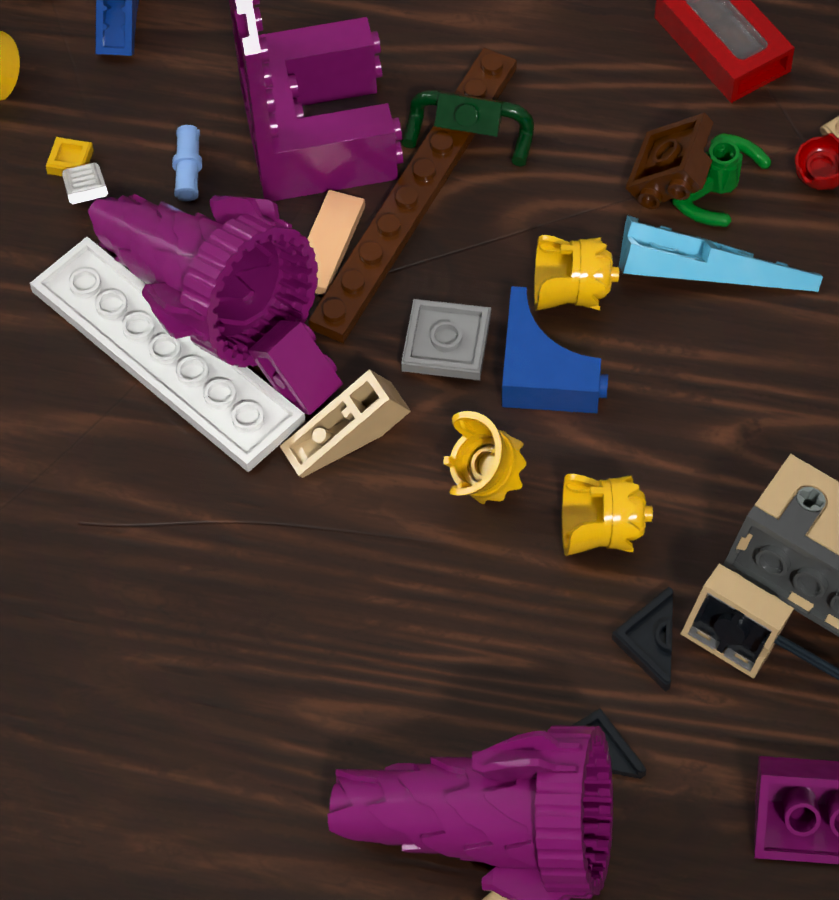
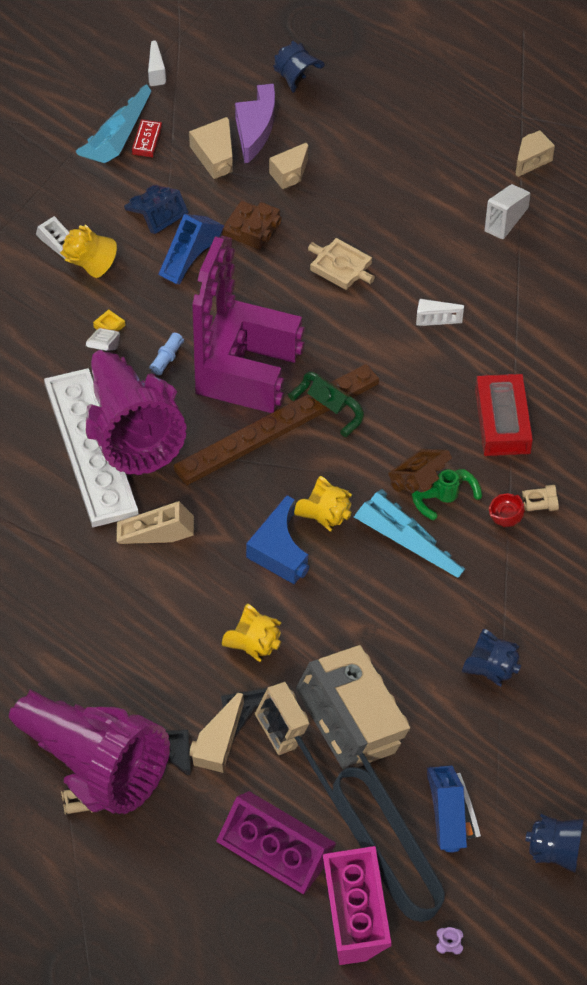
camera: 25 degrees right, 5 degrees down
(296, 365) = (146, 483): magenta brick -> none
(333, 234) = (213, 428): light nougat tile -> none
(446, 339) = (238, 508): light grey plate -> none
(484, 459) = (210, 577): yellow hat -> none
(659, 708) = (216, 738): none -> tan slope

